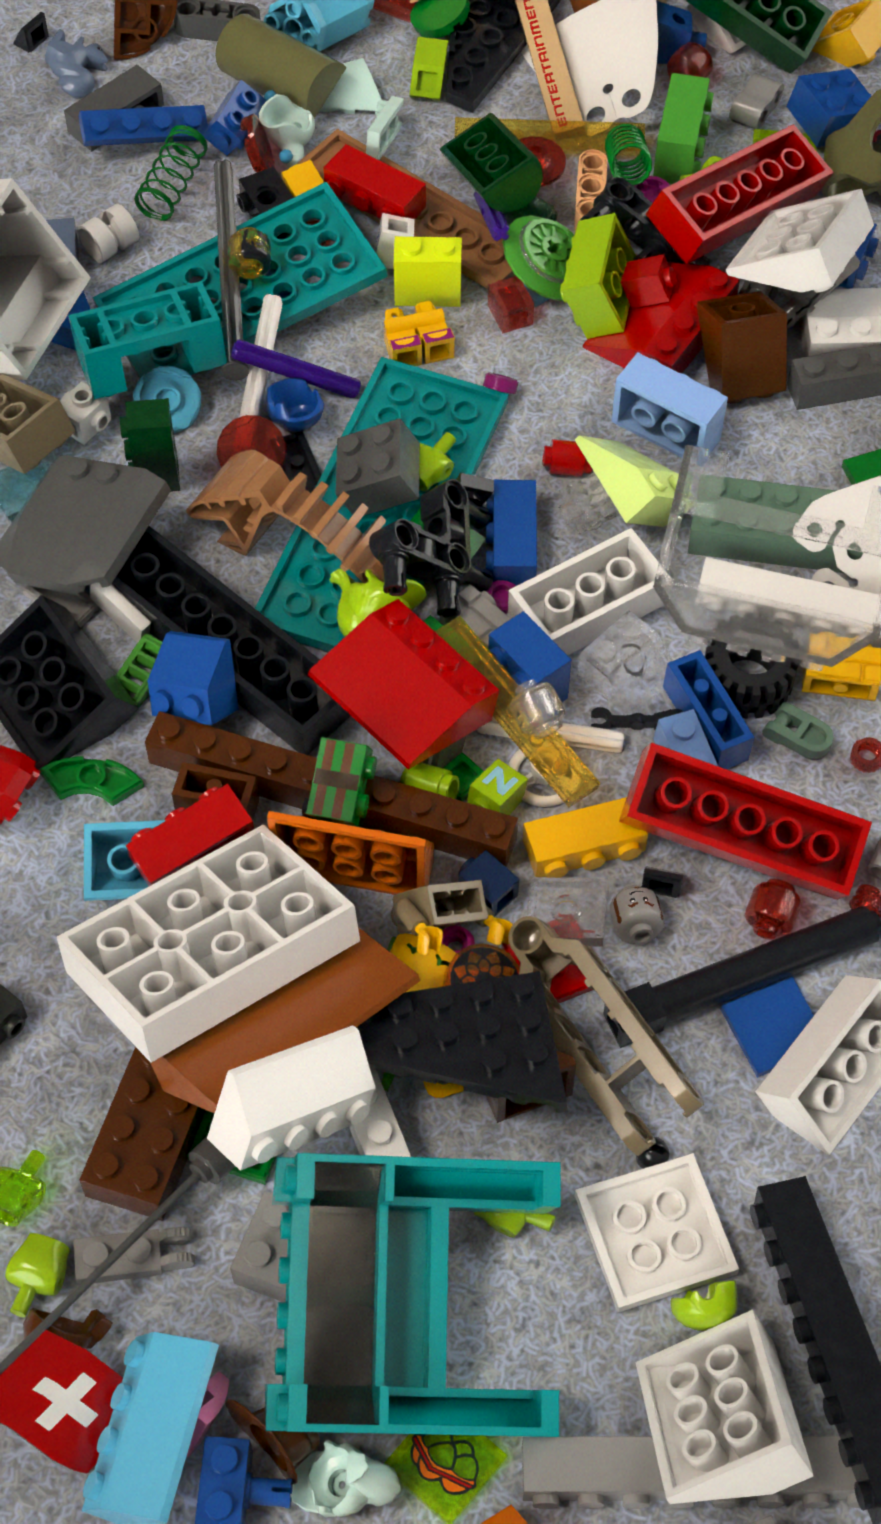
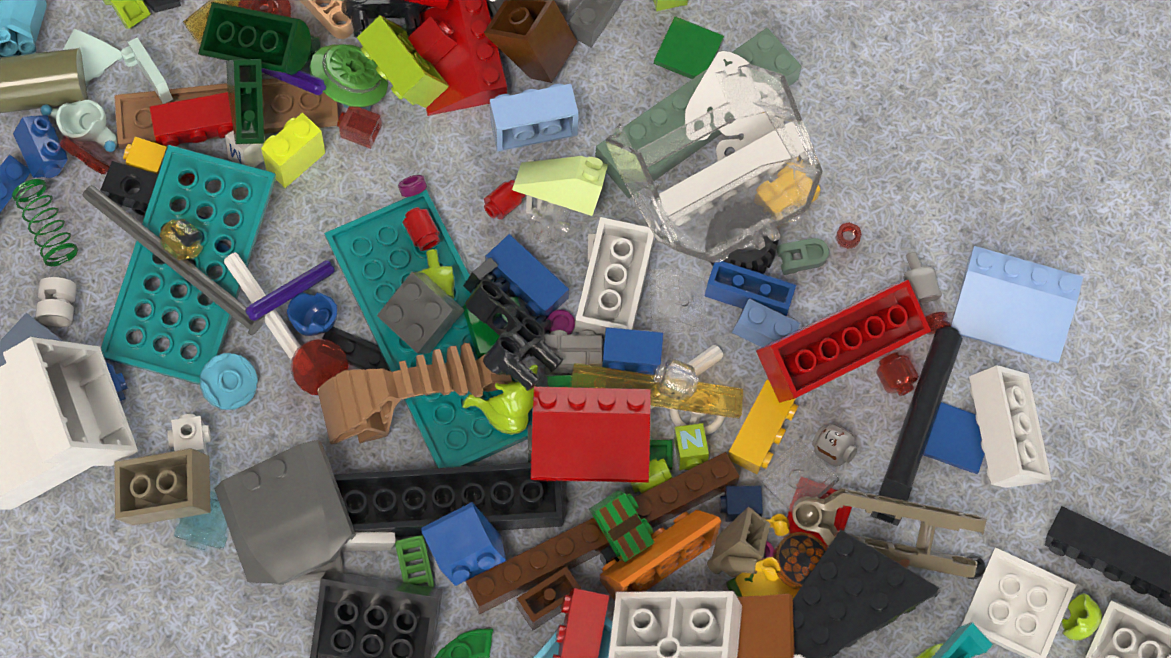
camera: 50 degrees left, 10 degrees up
(116, 331) = (174, 380): teal plate -> none
(151, 439) = (272, 423): dark green brick -> none
(418, 335) = (330, 200): yellow hips -> none
(426, 191) = (246, 100): none -> dark green slope
(463, 413) = (421, 229): none -> red brick
(635, 721) = (727, 317): black piece -> none
(662, 881) = (823, 411): black slope -> none

